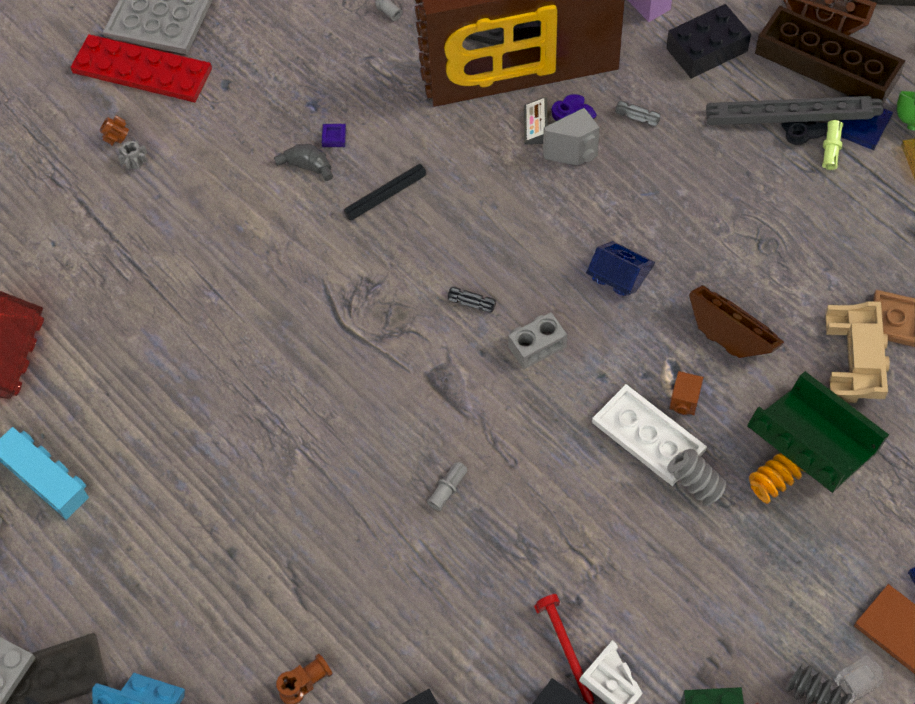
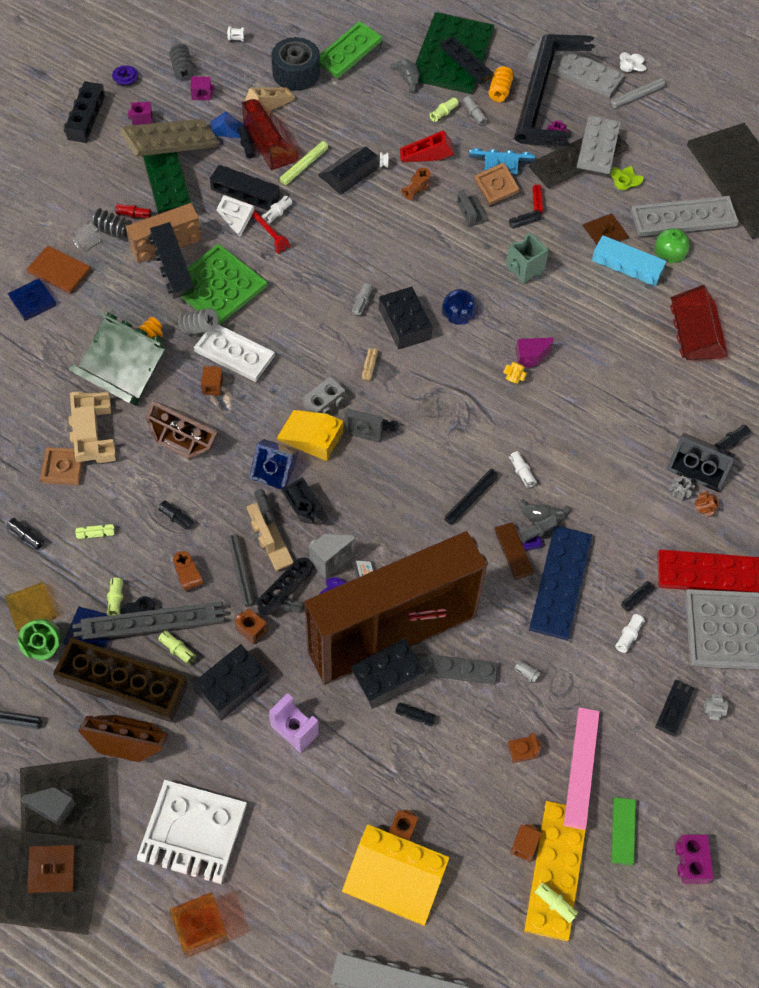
camera: 160 degrees right, 0 degrees up
(40, 202) = (733, 438): none -> black pin
(44, 543) = (605, 226): none -> reddish brown piece
(92, 180) = (701, 462): none -> black slope
(121, 617) = (537, 198): none -> red axle
(157, 583) = (524, 219): none -> black axle
(176, 650) = (496, 184): none -> medium nougat plate
(187, 488) = (527, 258): none -> sand green piece
(231, 618) = (471, 209): none -> dark grey panel
(235, 357) = (533, 350): none -> magenta slope
(239, 58) = (637, 596): none -> black axle
(266, 23) = (629, 633): none -> white pin
(272, 329) = (515, 372): none -> yellow gear
(311, 447) = (459, 307): none -> clear blue cylinder
(312, 209) = (522, 469): none -> white pin
(316, 87) = (560, 583): none -> dark blue plate
(323, 132) = (537, 528): none -> dark grey pin
(357, 126) = (513, 551): none -> reddish brown tile
(394, 437) = (405, 317): none -> black brick
(462, 385) = (369, 364): none -> tan axle
(495, 282) = (363, 425): none -> dark grey tile
(542, 676) = (277, 209): none -> white pin
(565, 294) = (312, 433): none -> yellow slope
(591, 209) = (301, 498): none -> black piece
(634, 124) = (287, 587): none -> black beam
(642, 186) = (270, 539): none -> tan bracket
(642, 211) = (264, 506): none -> dark grey axle
(658, 551) = (222, 283): none -> bright green plate
(678, 92) = (252, 633): none -> dark orange brick
(680, 156) = (241, 570): none -> dark grey axle
(729, 567) = (171, 260): none -> black brick
(734, 644) = (184, 224): none -> medium nougat piece
(744, 160) = (187, 573): none -> dark orange piece
(752, 228) = (175, 515): none -> black axle
(762, 85) = (177, 647): none -> yellowish green pin
(855, 228) = (95, 531): none -> yellowish green axle

